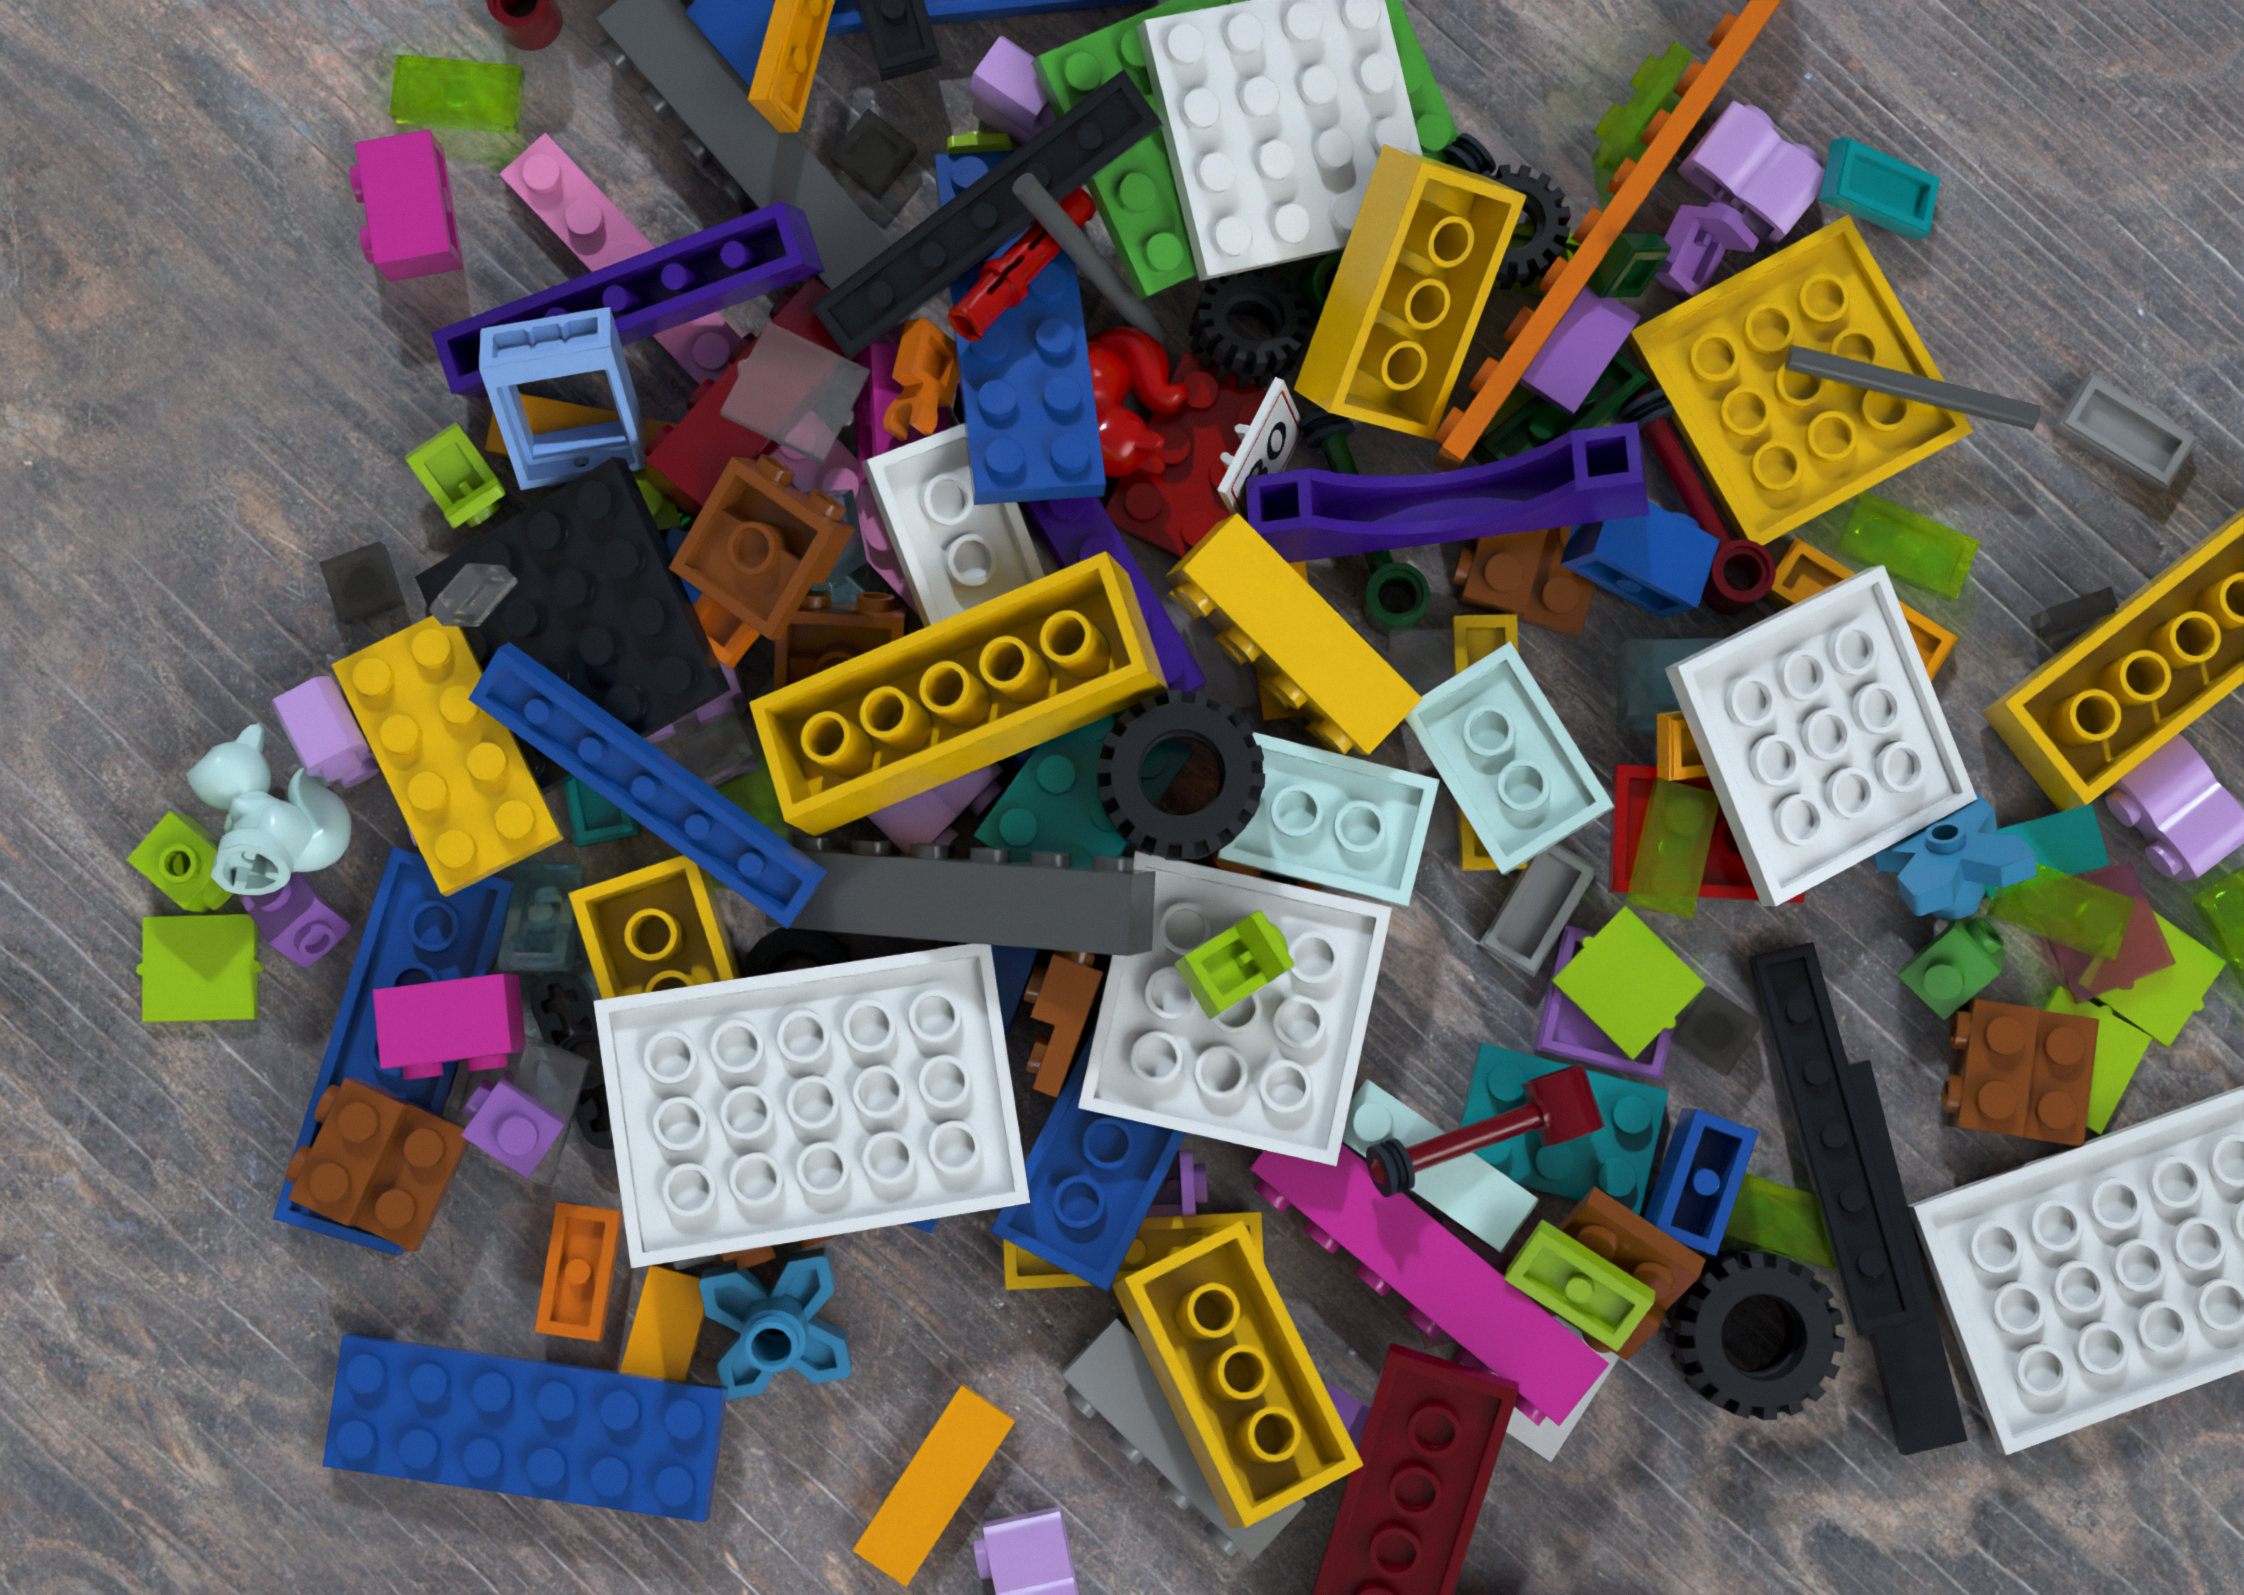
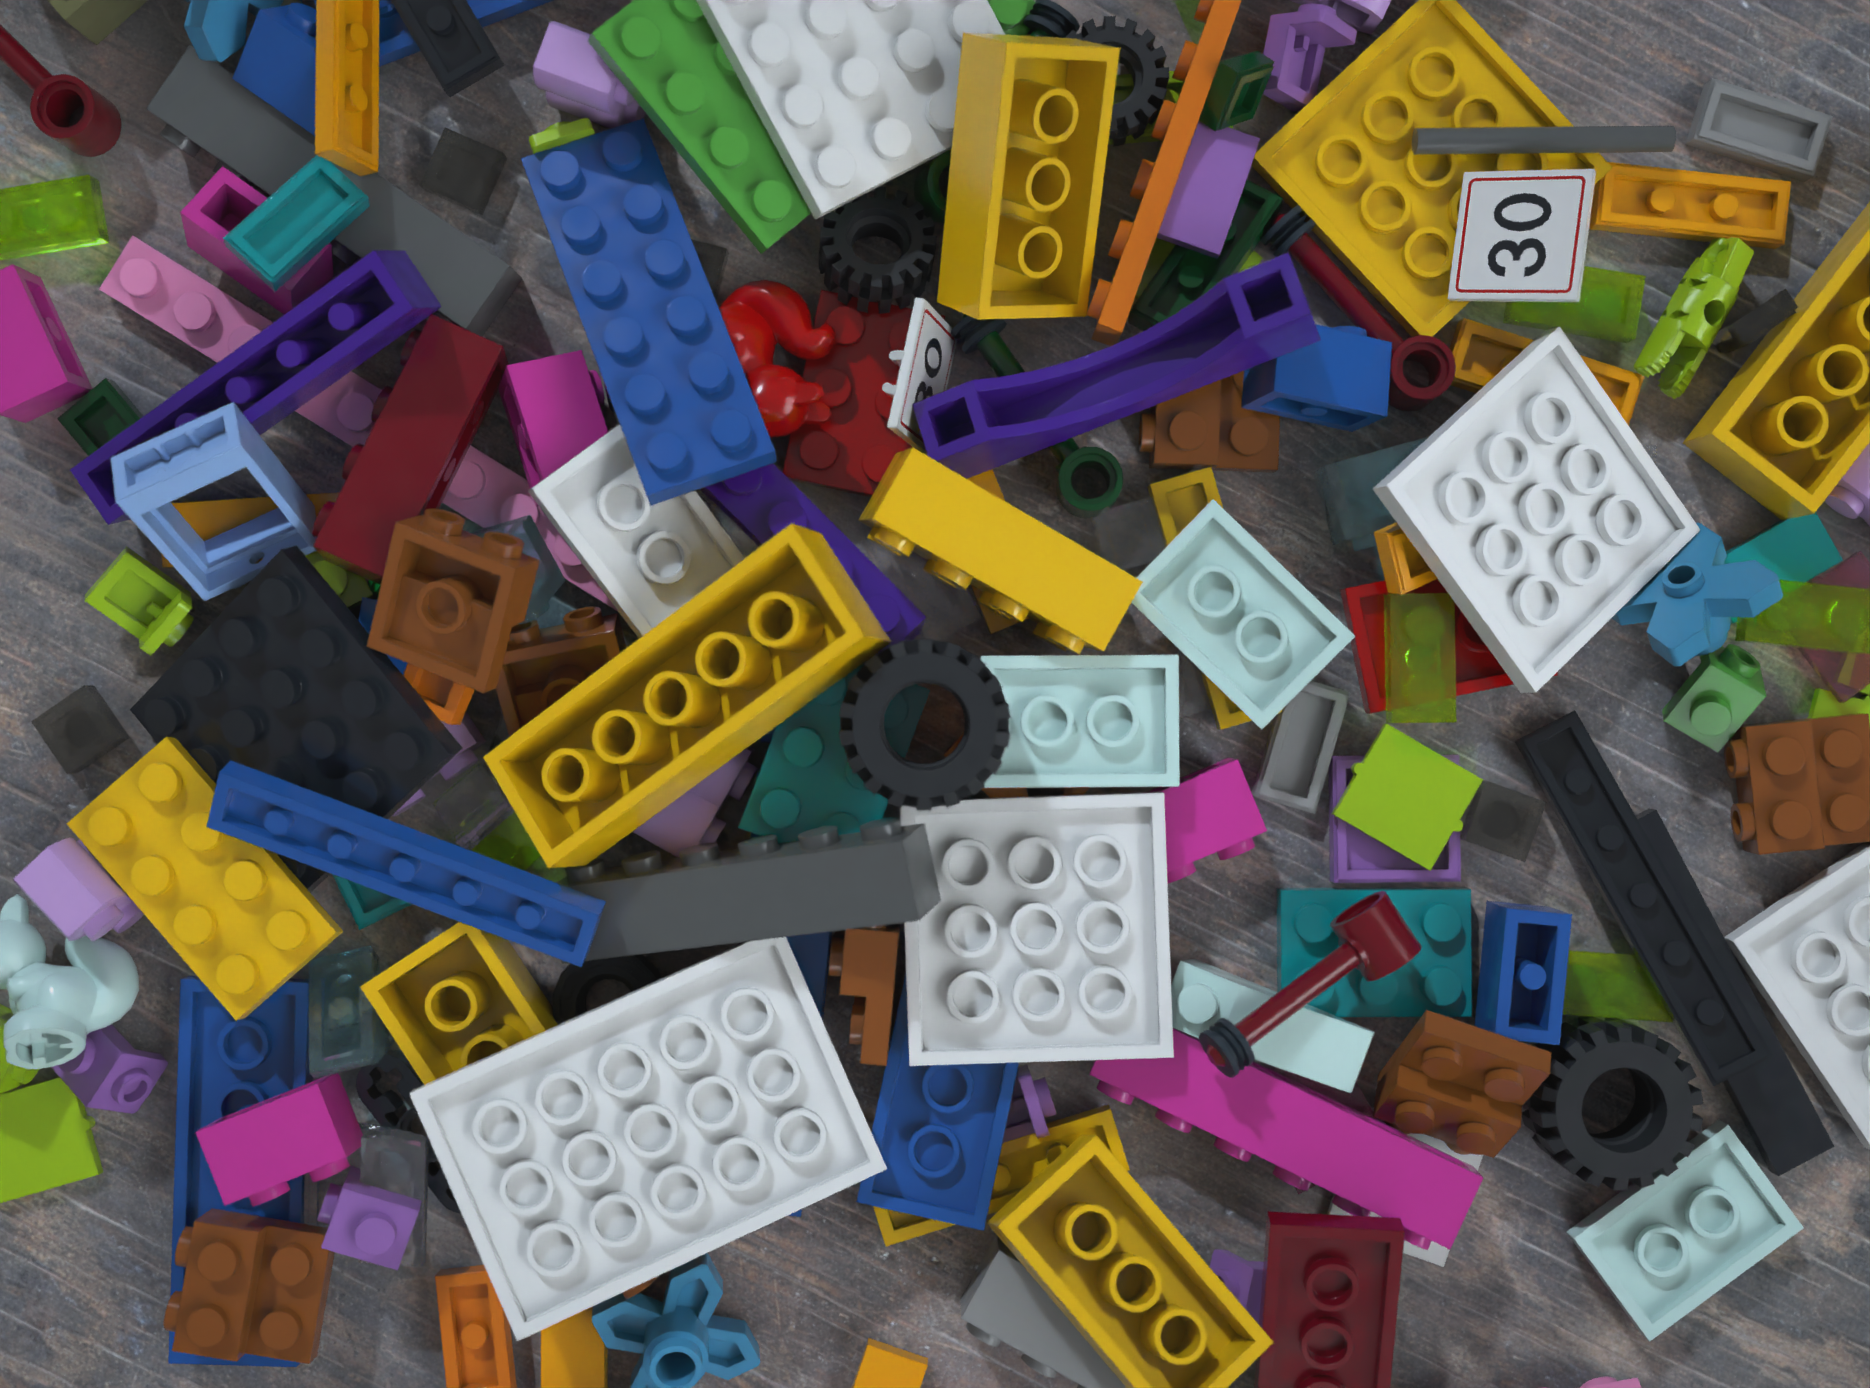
camera: 15 degrees left, 5 degrees up
(464, 293) = (99, 416): none -> dark green tile
(472, 595) = (183, 720): clear tile -> none
(663, 169) = (217, 211): none -> dark pink brick
(710, 158) = (296, 222): none -> teal tile
(795, 392) = (444, 437): clear piece -> none
(929, 376) = (572, 384): orange plate -> none
(985, 216) = (586, 208): black tile -> none
(1006, 279) = (622, 269): red pin -> none
(1086, 256) = (694, 223): dark grey bar -> none
(1235, 963) = (1026, 892): lime bracket -> none
(1429, 947) = (1208, 816): none -> dark pink brick
(1580, 1285) = (1437, 1110): lime plate -> none
(1799, 1485) = (1687, 1233): none -> light aqua plate
(1867, 470) = (1522, 236): none -> white piece
(2020, 591) = (1694, 315): none -> lime hinge
(2042, 488) = (1691, 205): none -> light orange tile

